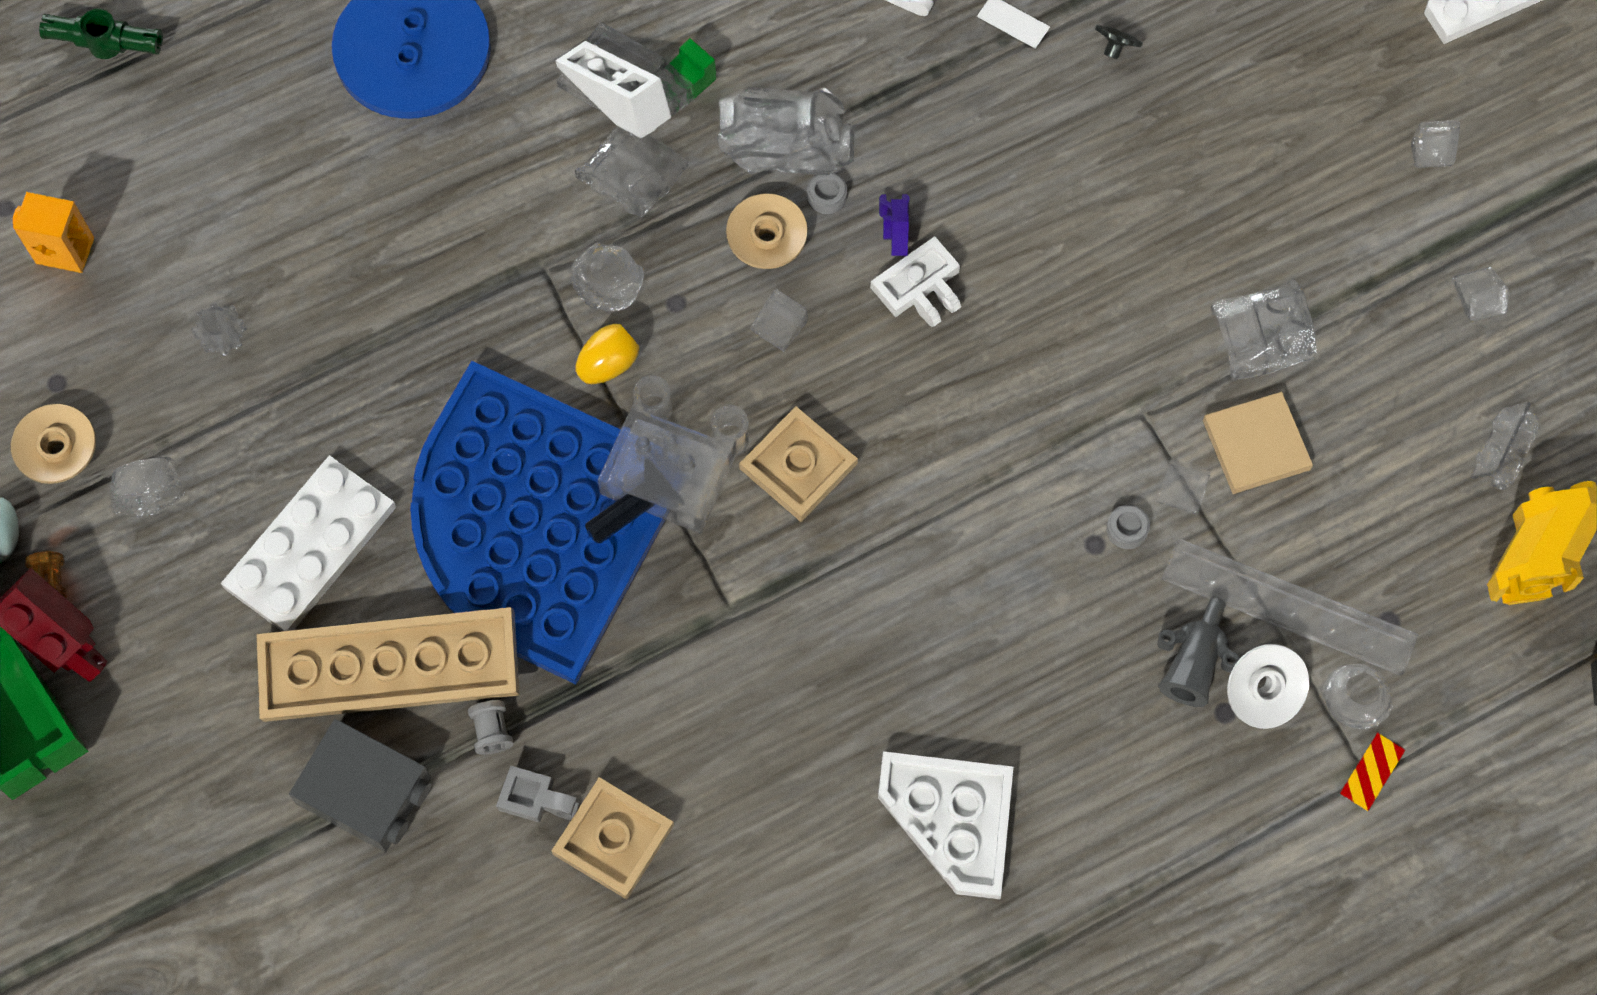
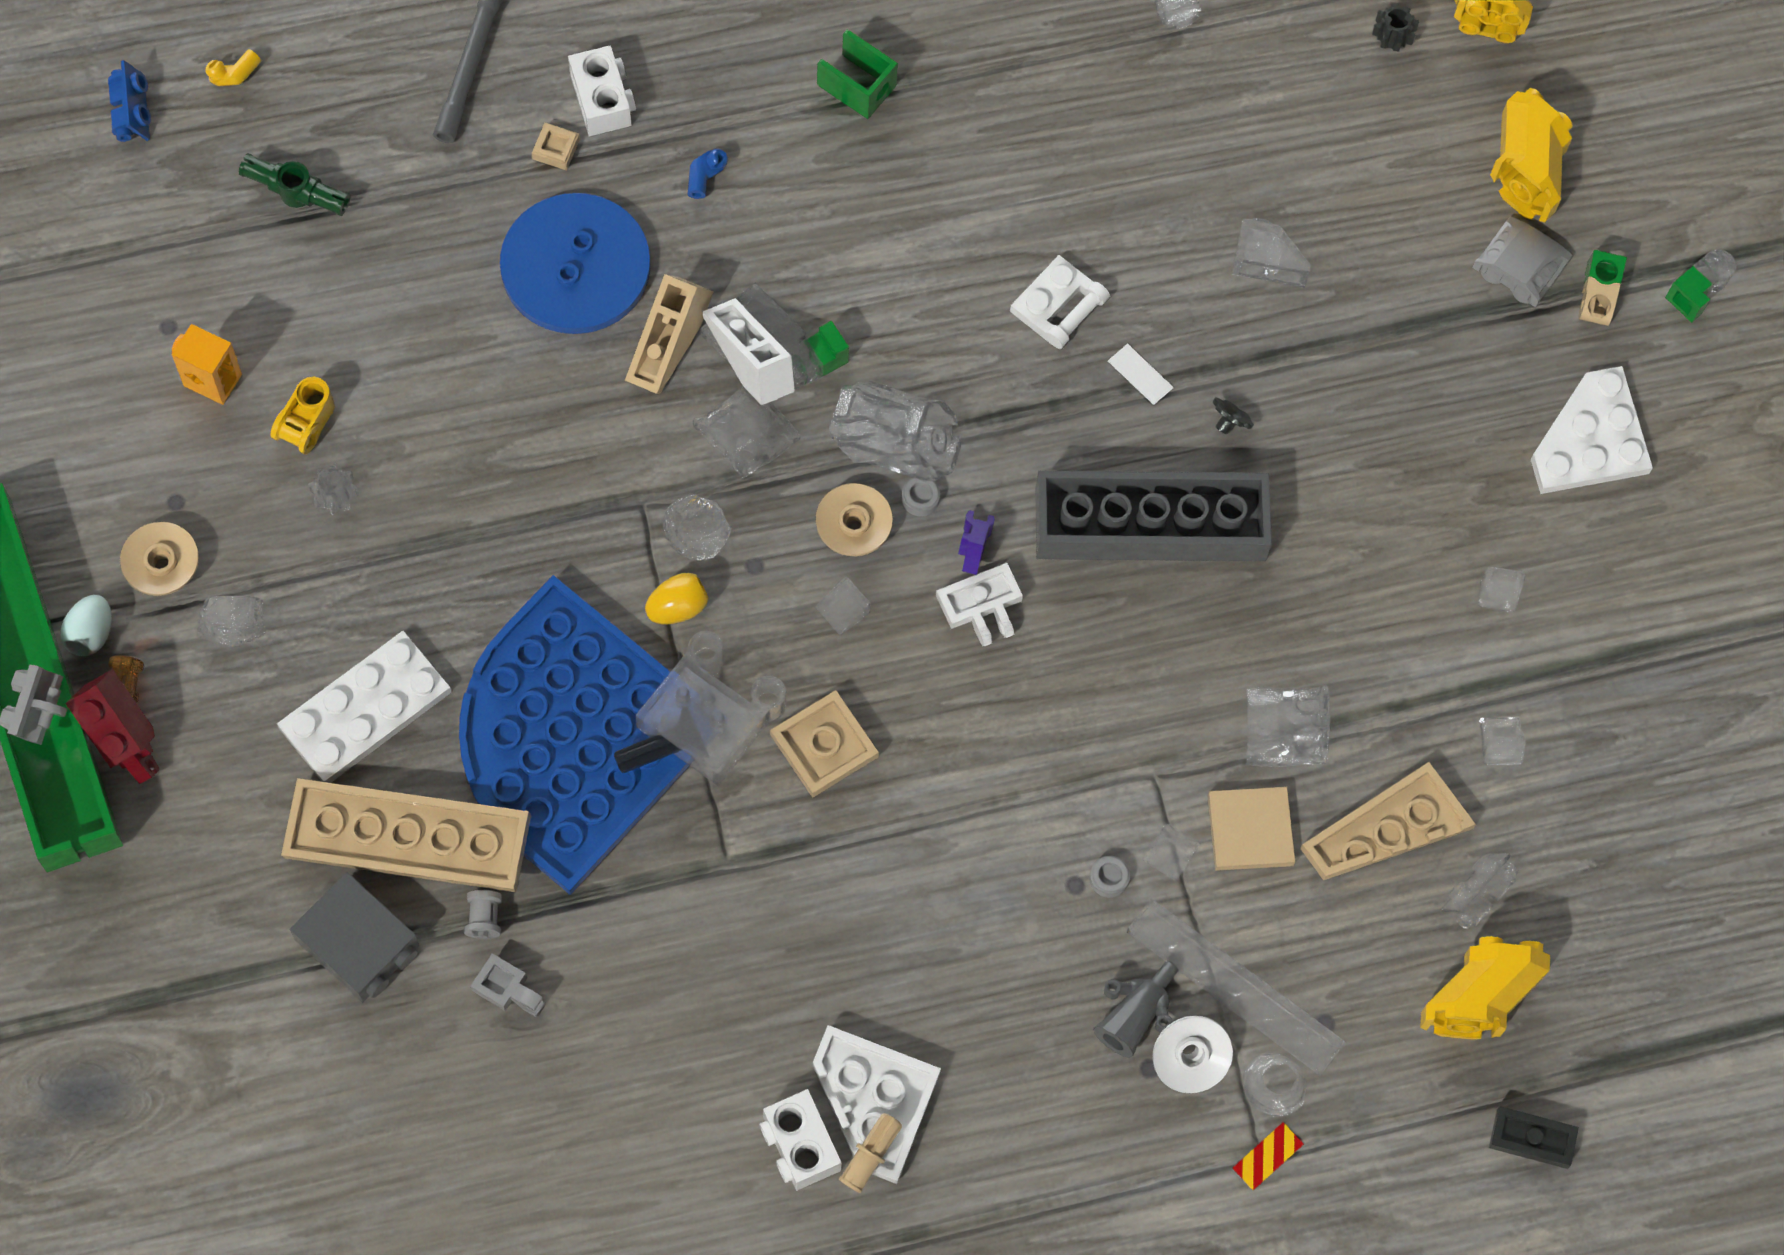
camera: 10 degrees right, 0 degrees up
(166, 268) = (303, 422): none -> yellow piece
(525, 90) = (668, 332): none -> tan slope
(613, 838) = (566, 1041): tan plate -> none
(898, 873) = (809, 1137): none -> white brick
(967, 873) = (871, 1152): none -> tan axle
(1069, 154) = (1153, 516): none -> dark grey brick
(1401, 399) = (1394, 822): none -> tan wing

